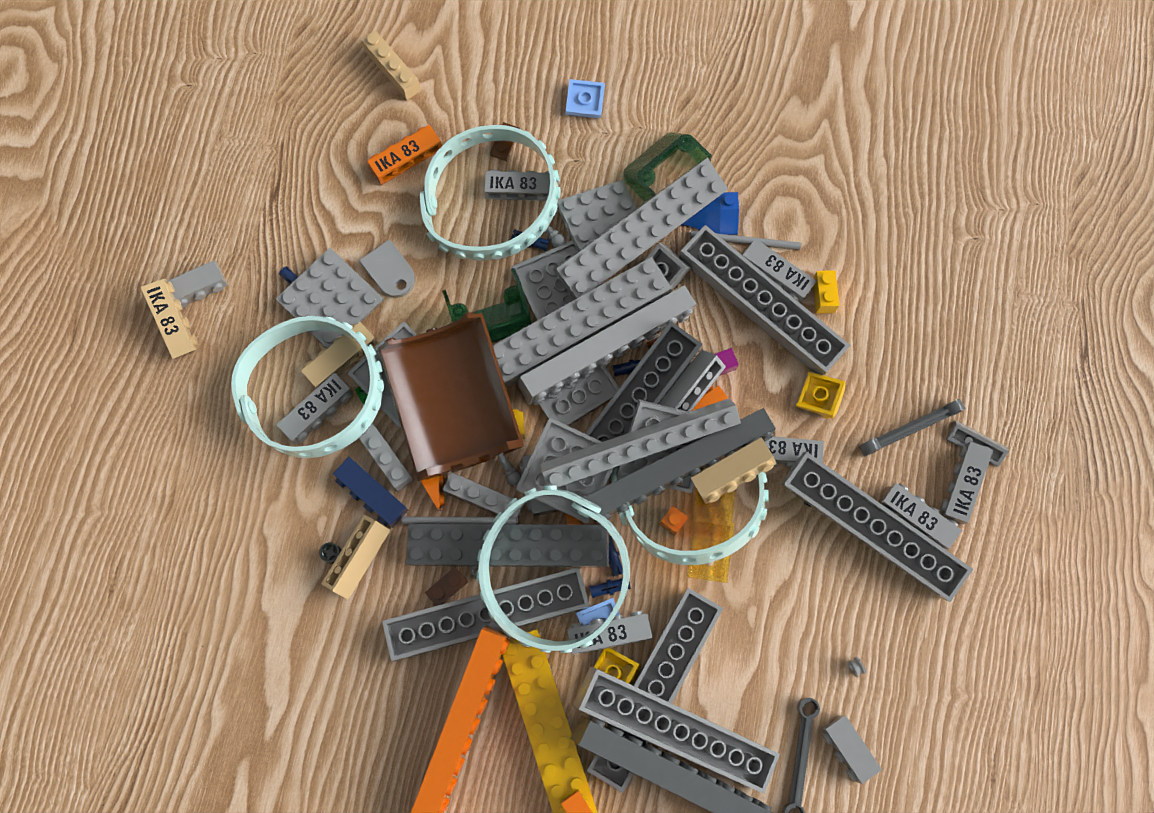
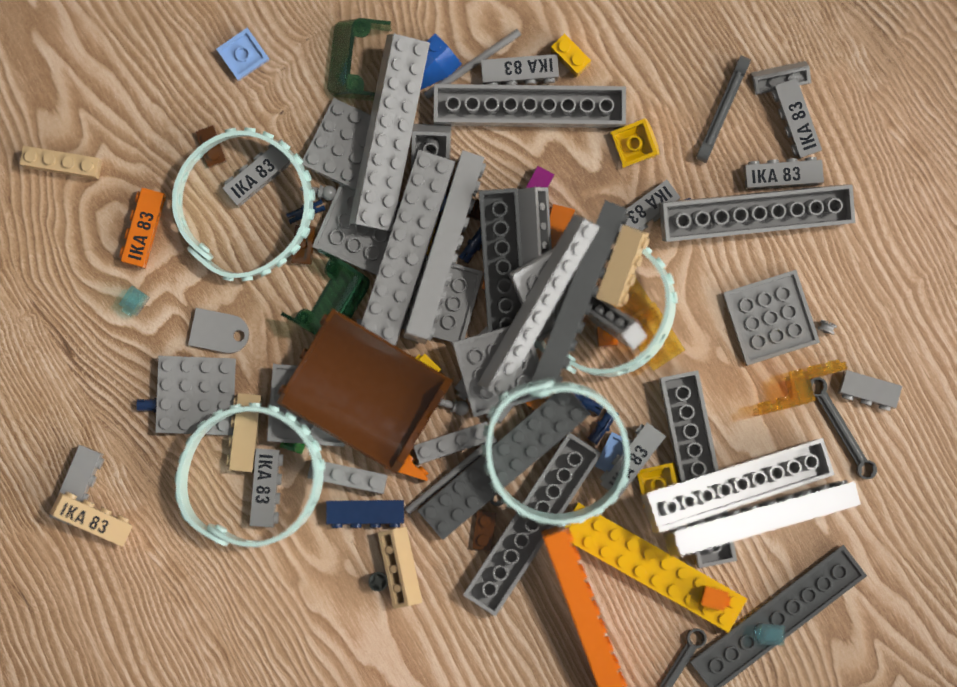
camera: 40 degrees left, 10 degrees up
(350, 197) = (133, 301): none -> clear light blue brick
(502, 266) = (305, 253): none -> reddish brown plate
(690, 511) = (616, 323): none -> light grey brick
(795, 695) = (799, 387): none -> clear yellow bracket
(817, 620) = (771, 317): none -> light grey plate

